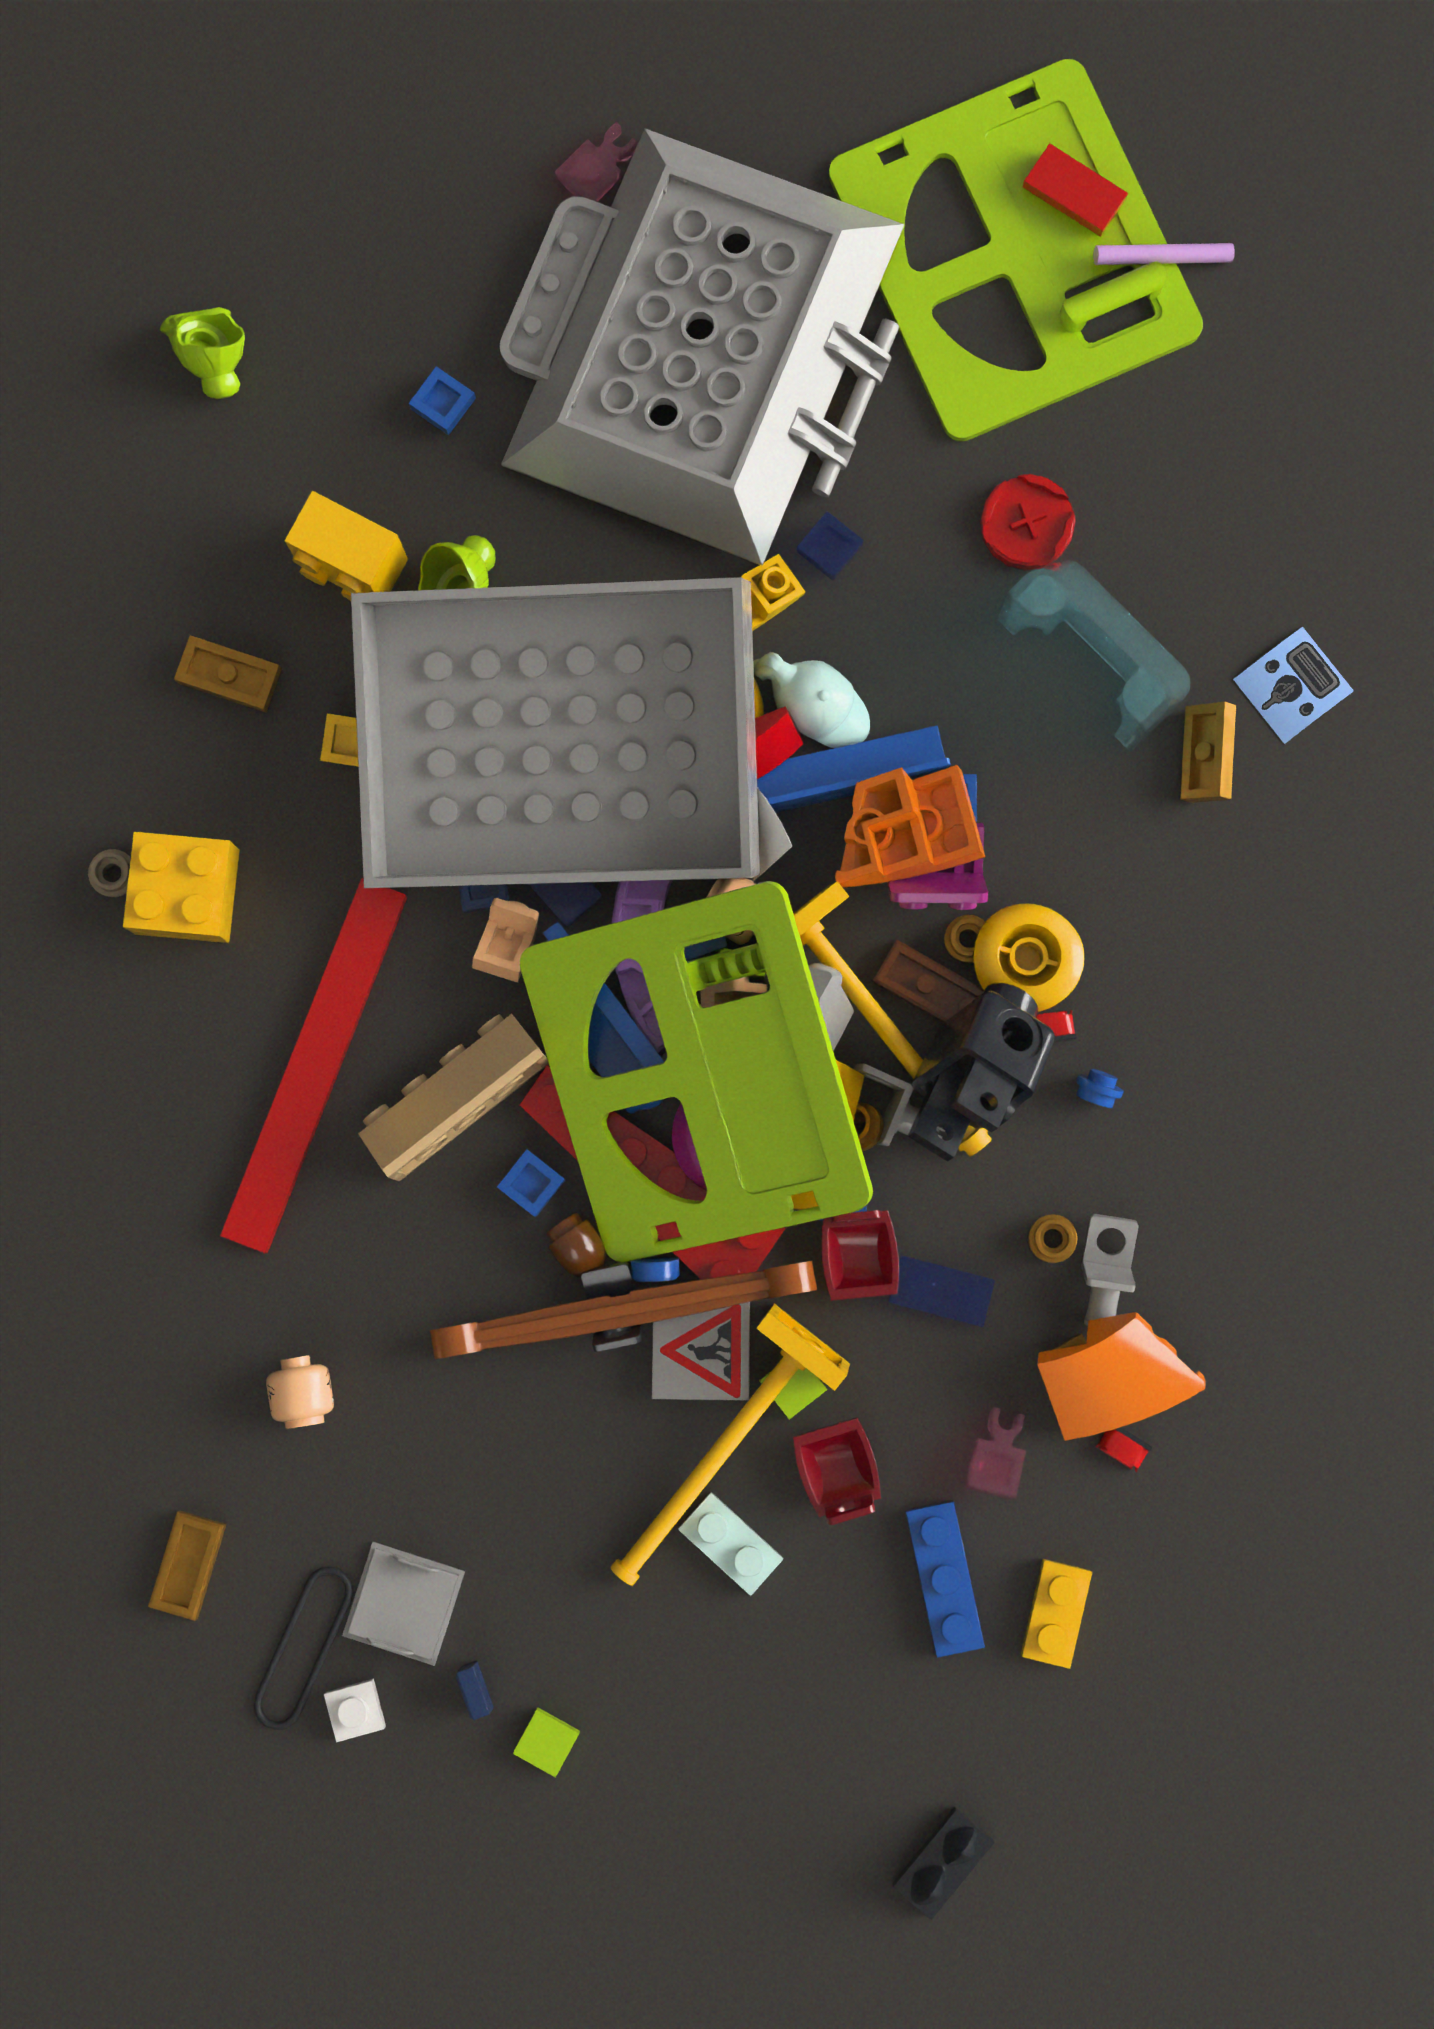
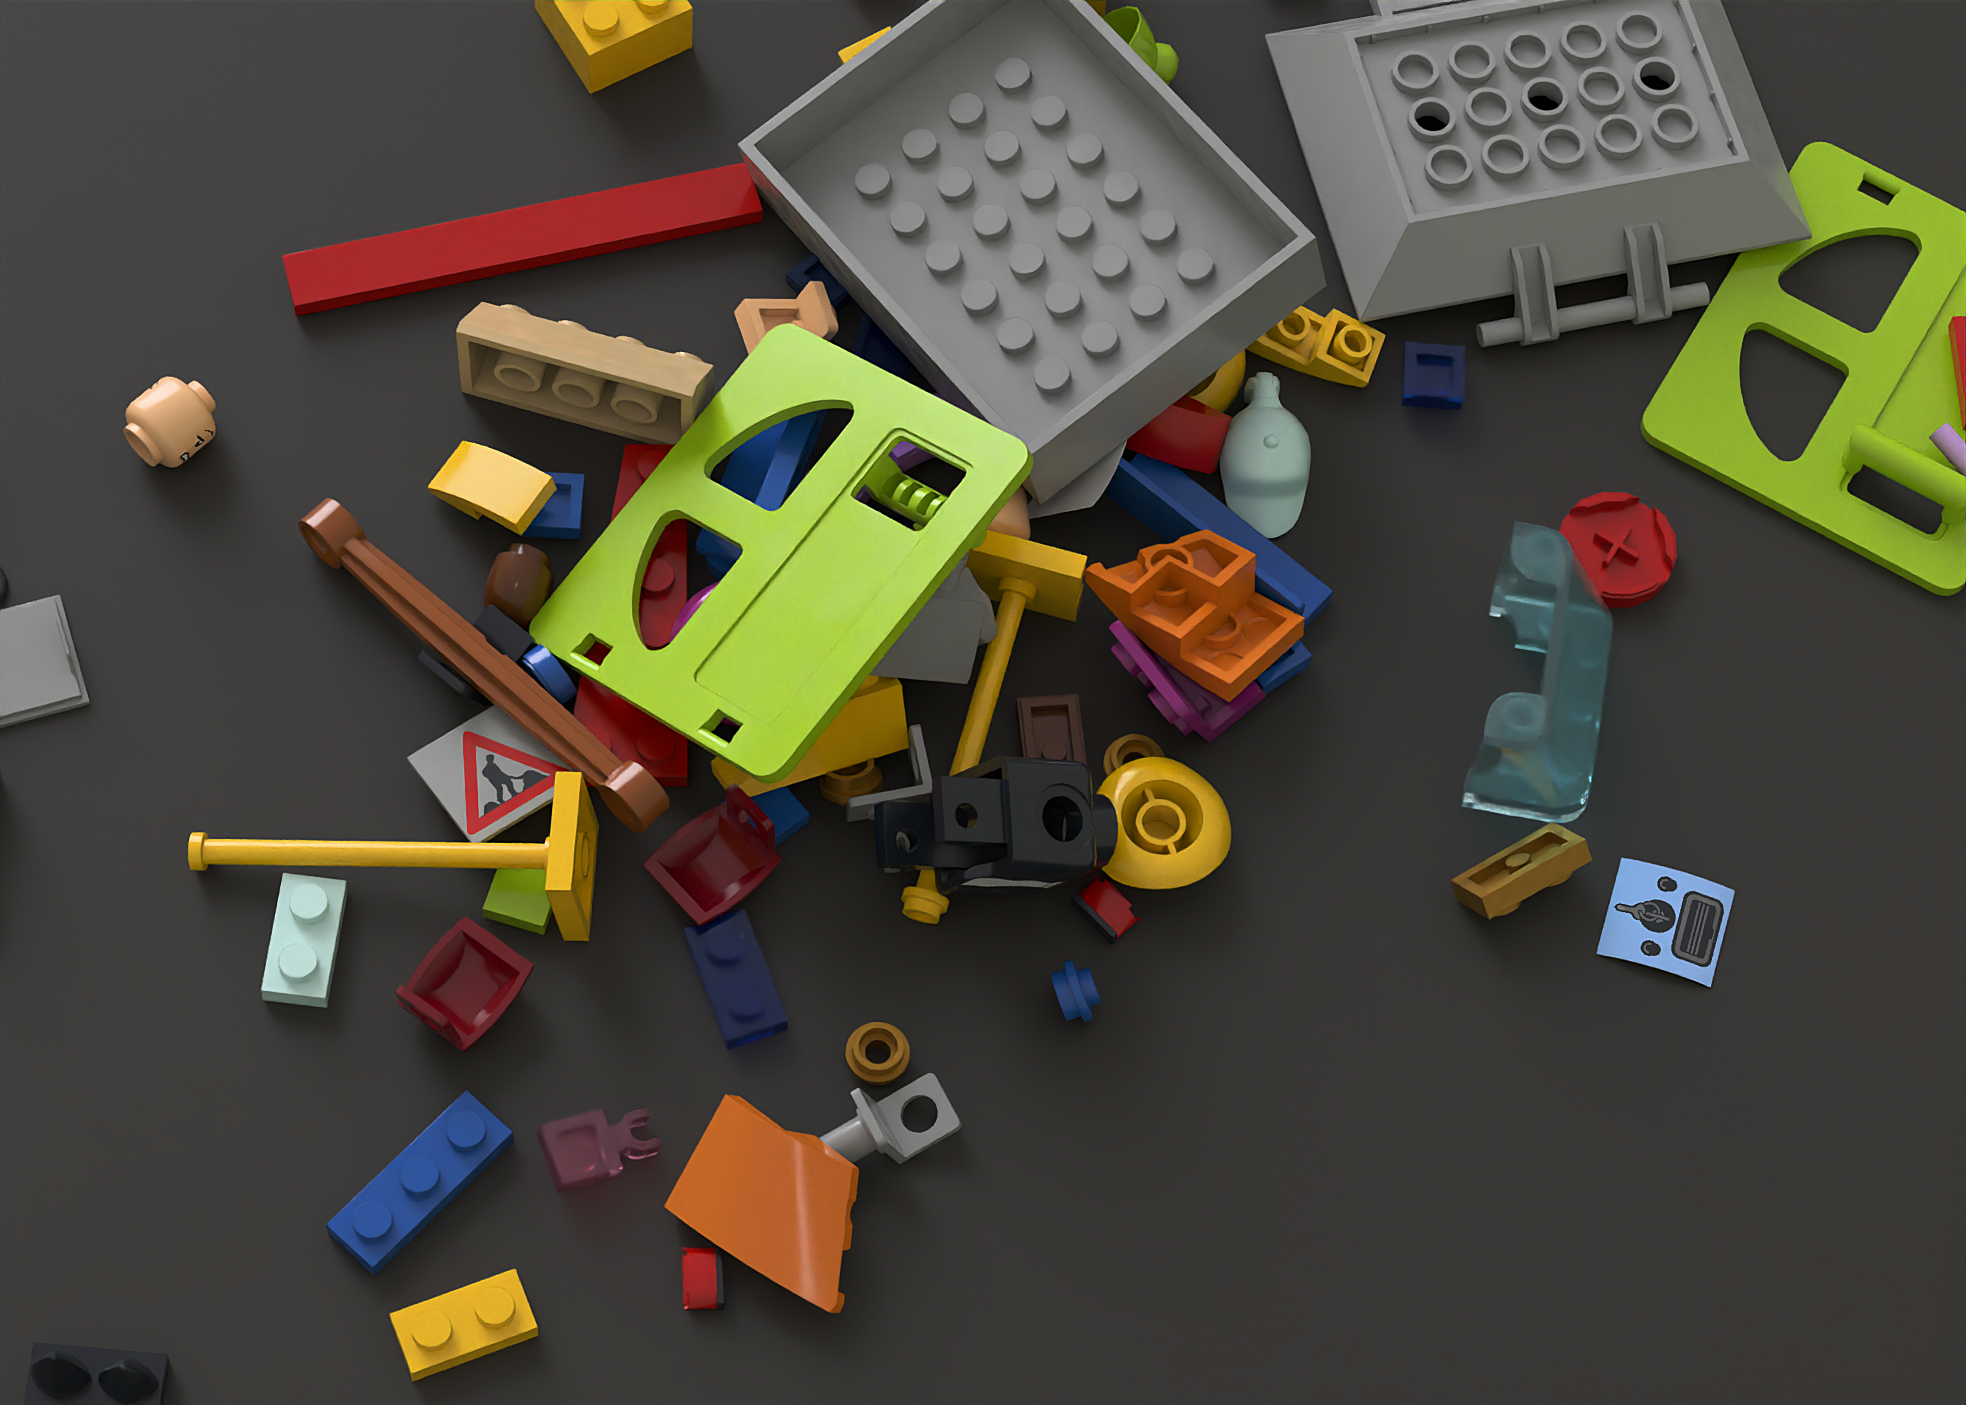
camera: 45 degrees right, 20 degrees down
(496, 1216) = (492, 485): none -> yellow slope

